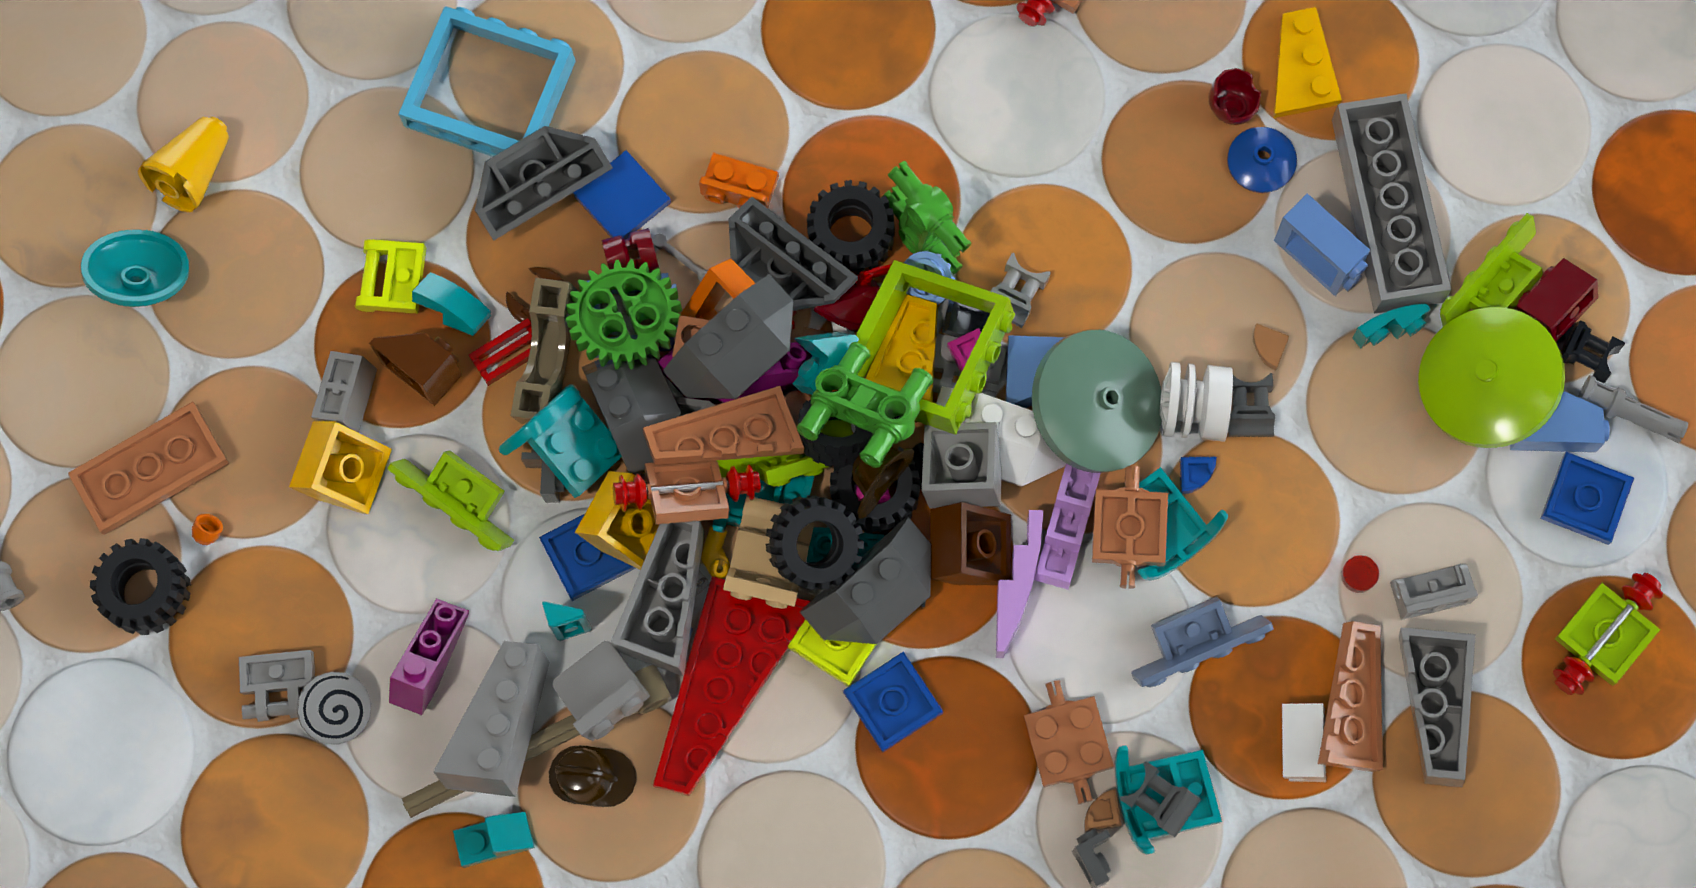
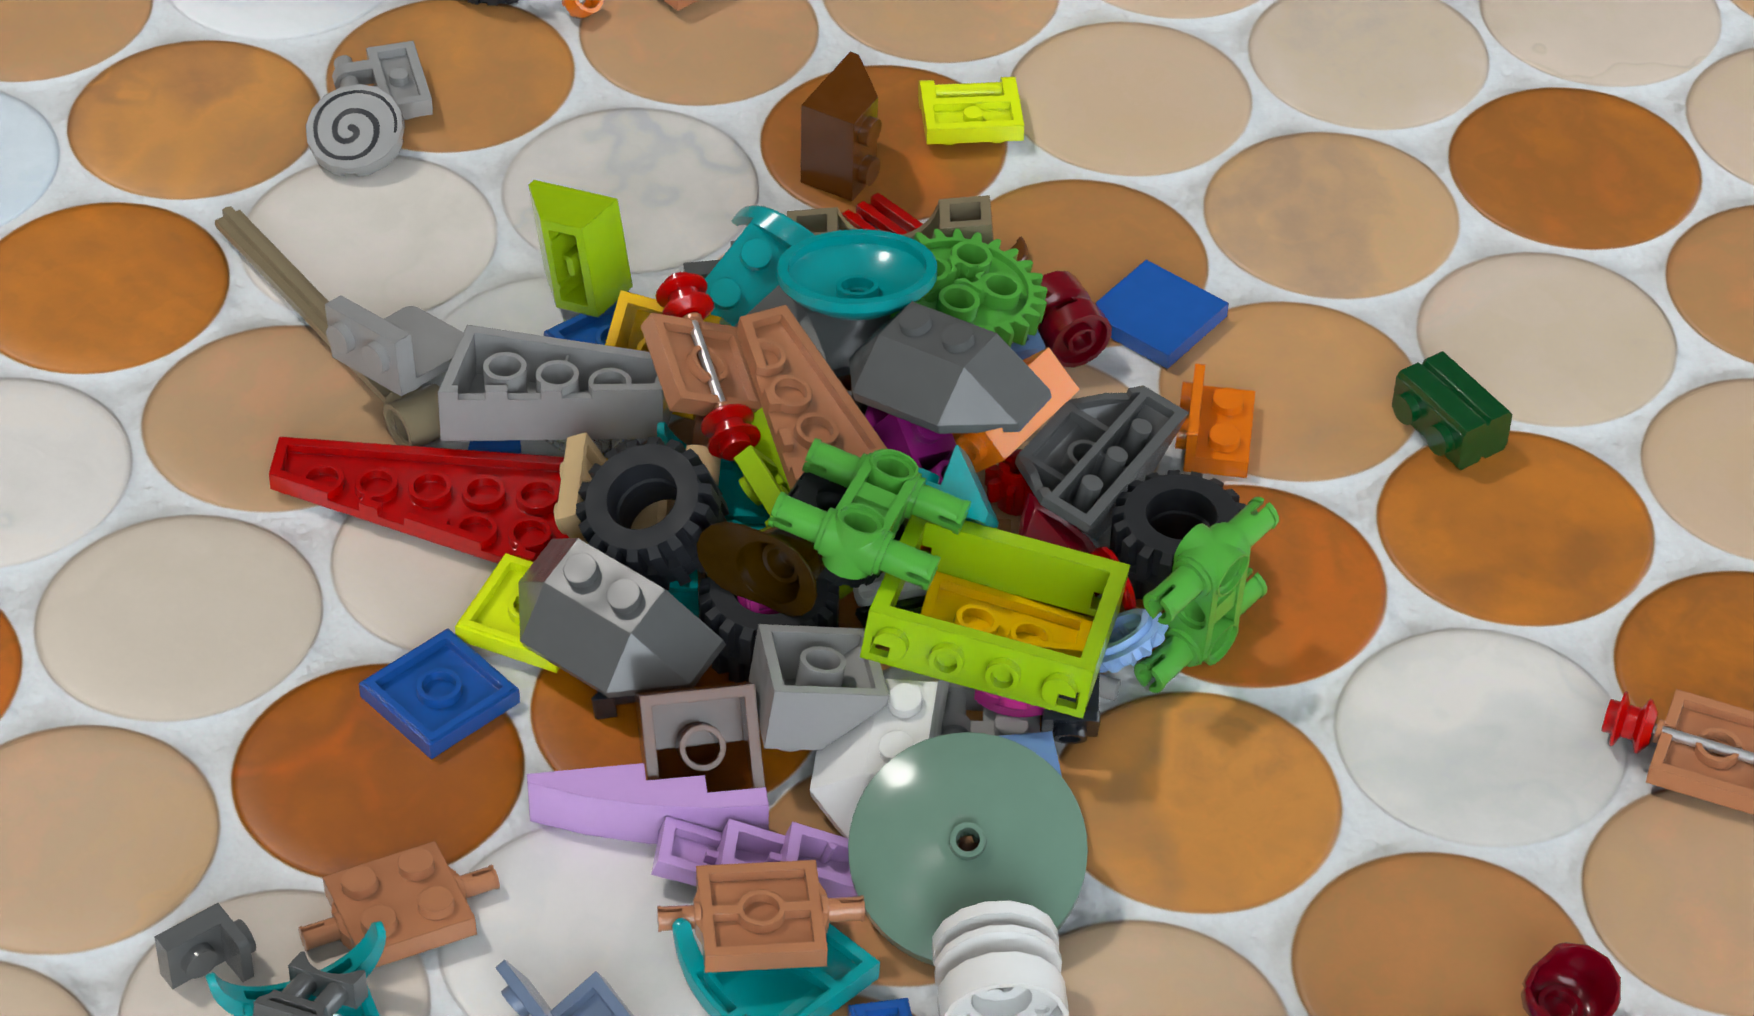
camera: 75 degrees right, 30 degrees down
(340, 466) = (688, 94): yellow slope -> none
(344, 390) = (782, 81): light grey hinge -> none
(427, 657) = (434, 204): magenta slope -> none
(458, 306) = (944, 160): teal slope -> none
(459, 493) = (674, 196): lime bracket -> none
(493, 838) = (193, 304): teal slope -> none
(495, 30) = (1270, 213): medium azure window -> none
(498, 724) = (324, 253): light grey wedge -> none
(517, 562) = (581, 247): none -> lime slope
(535, 176) = (1141, 195): dark grey wedge -> none
(566, 621) = (500, 292): teal slope -> none
(592, 776) = (290, 387): dark brown piece -> none
(620, 361) = (857, 273): none -> teal dish
(660, 242) = (1102, 364): light grey hinge -> none
(755, 39) = (1451, 410): none -> dark green brick
(1020, 300) = (1114, 759): light grey piece -> none
(1103, 813) = (275, 957): medium nougat tile -> none

